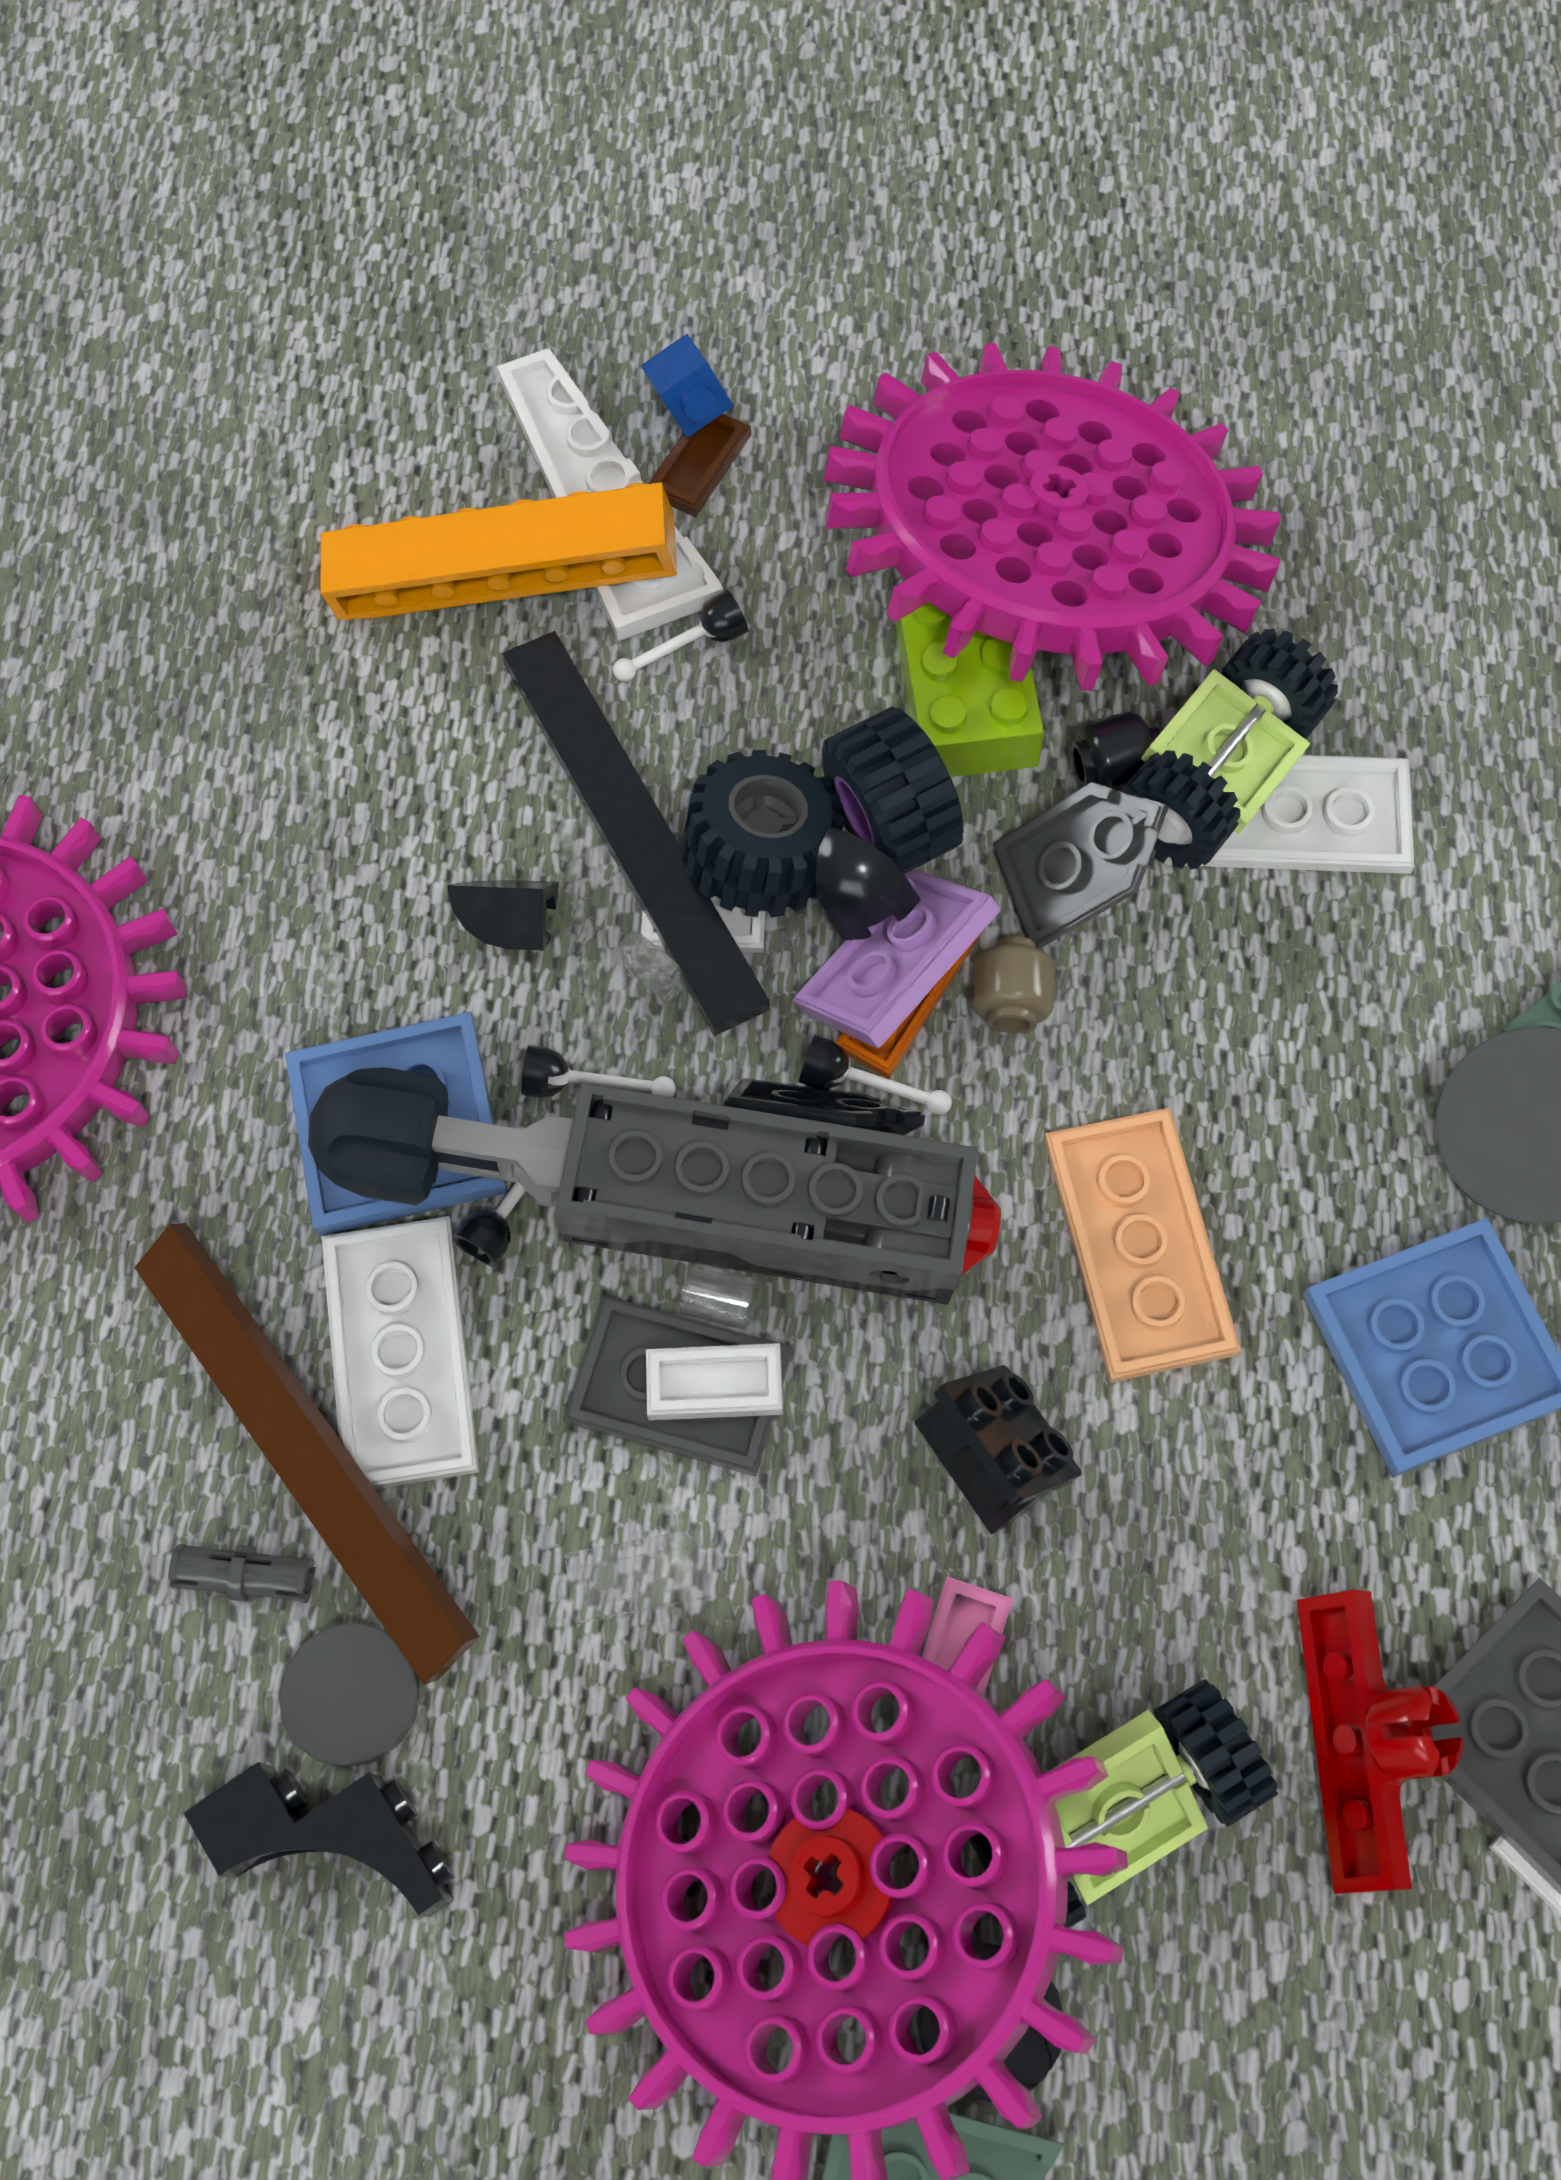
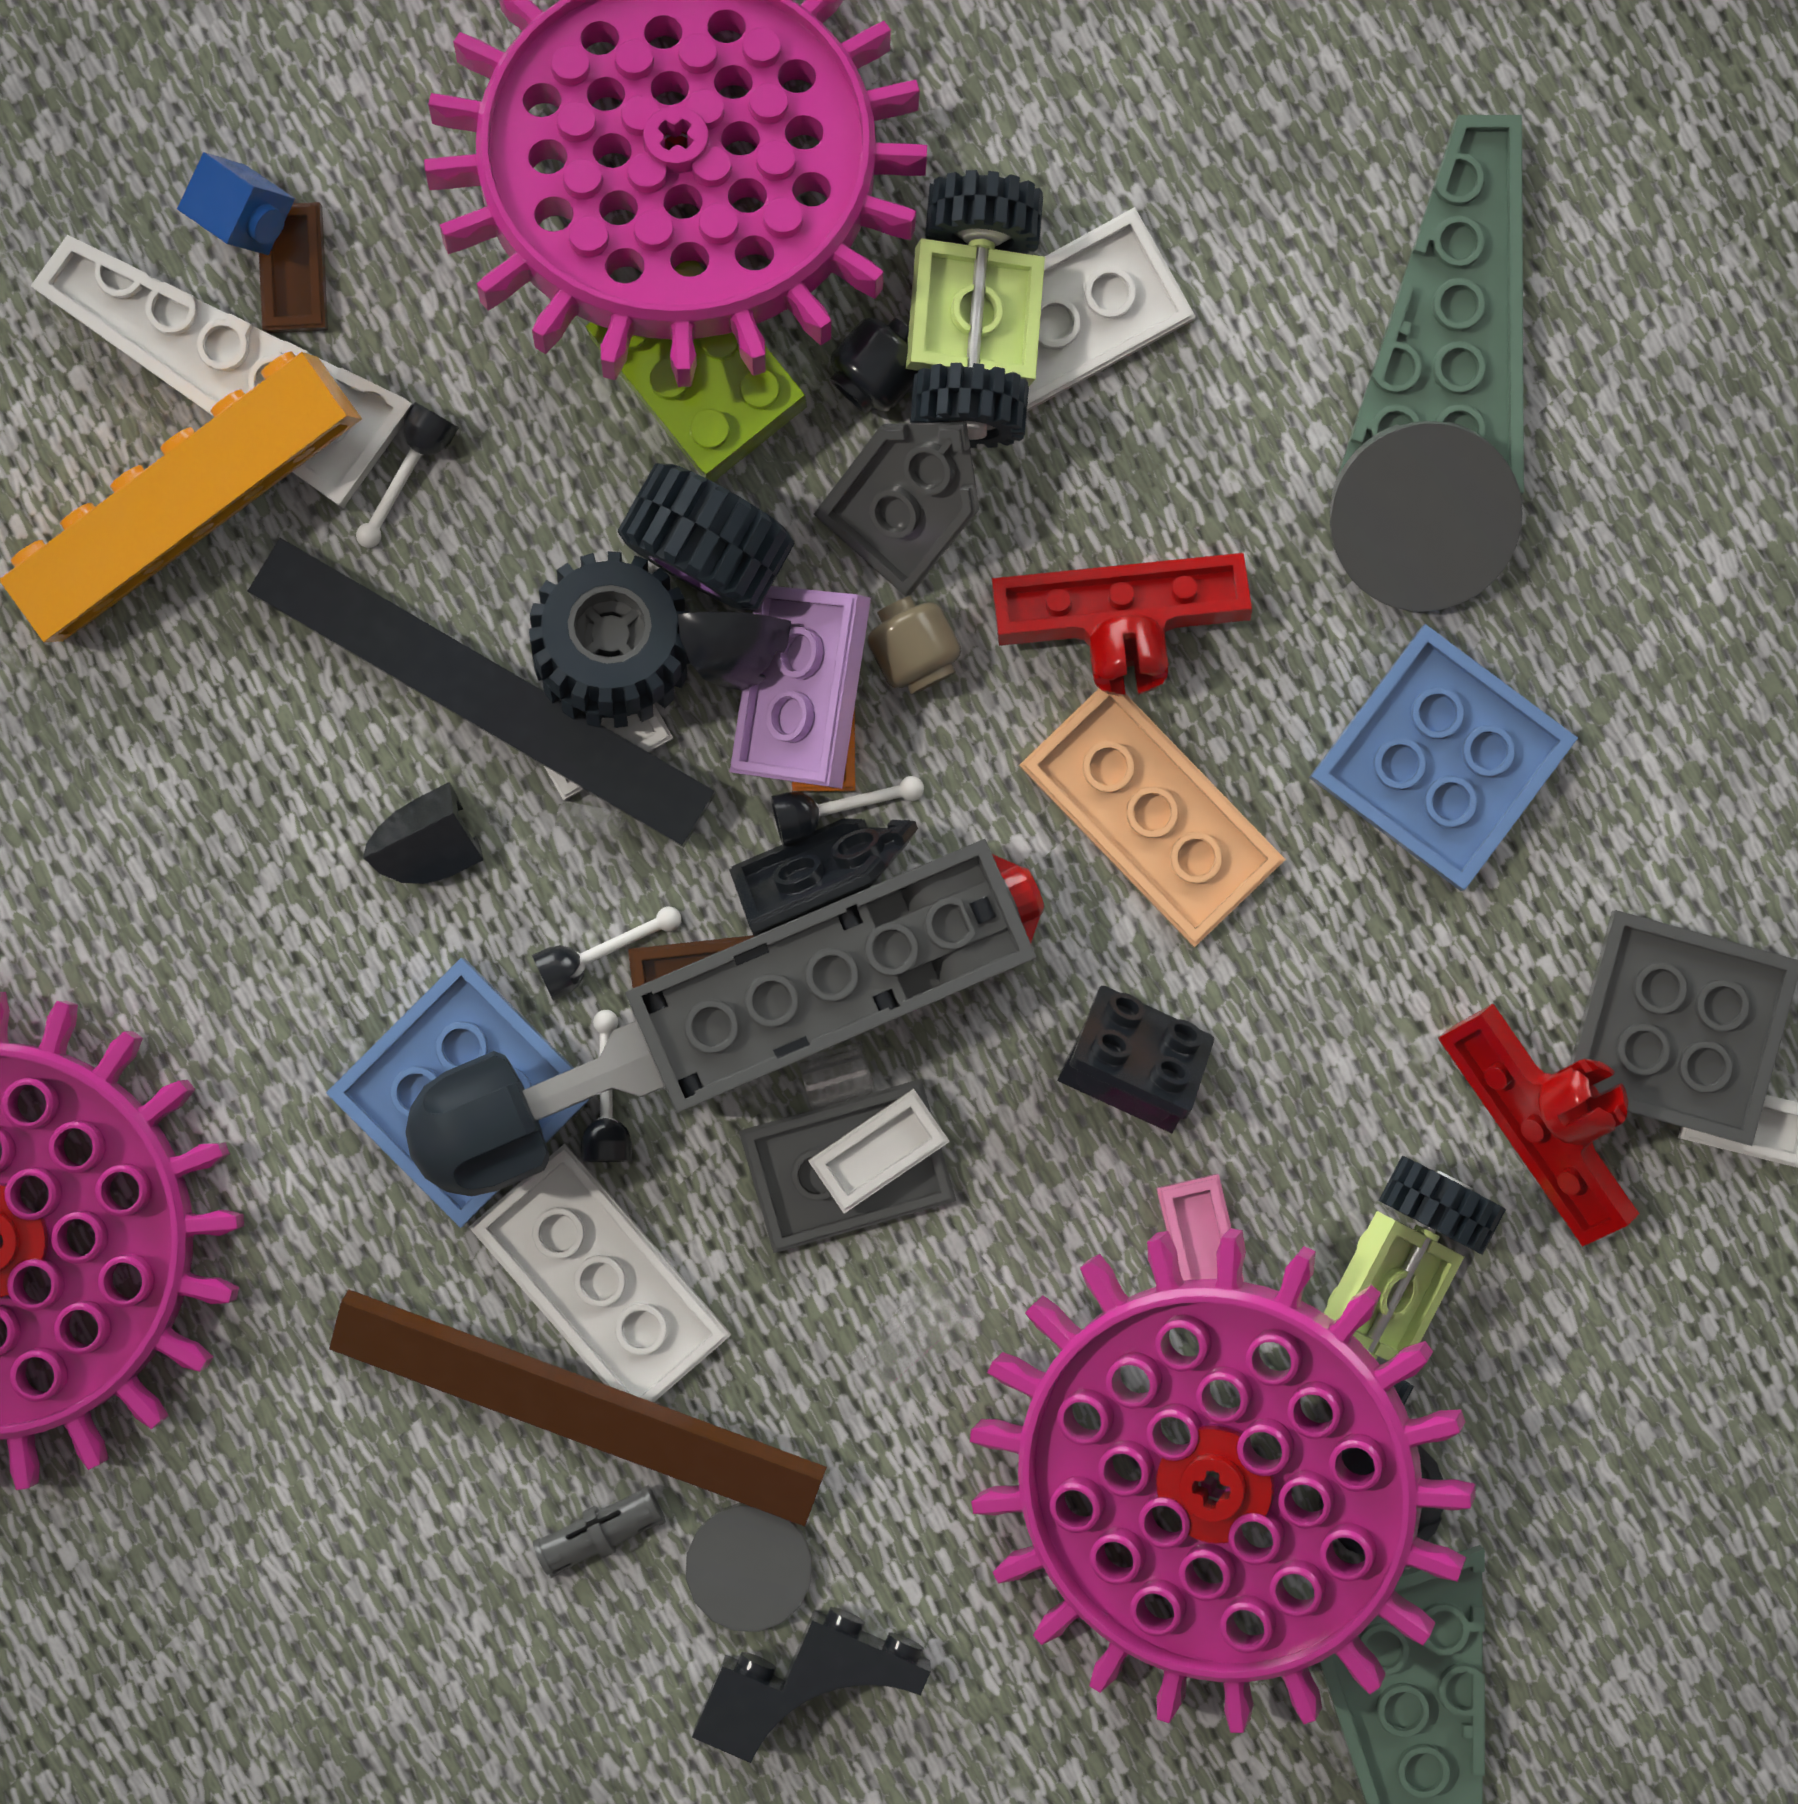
camera: 35 degrees left, 20 degrees up
(1214, 1057) = (1123, 611): none -> red plate

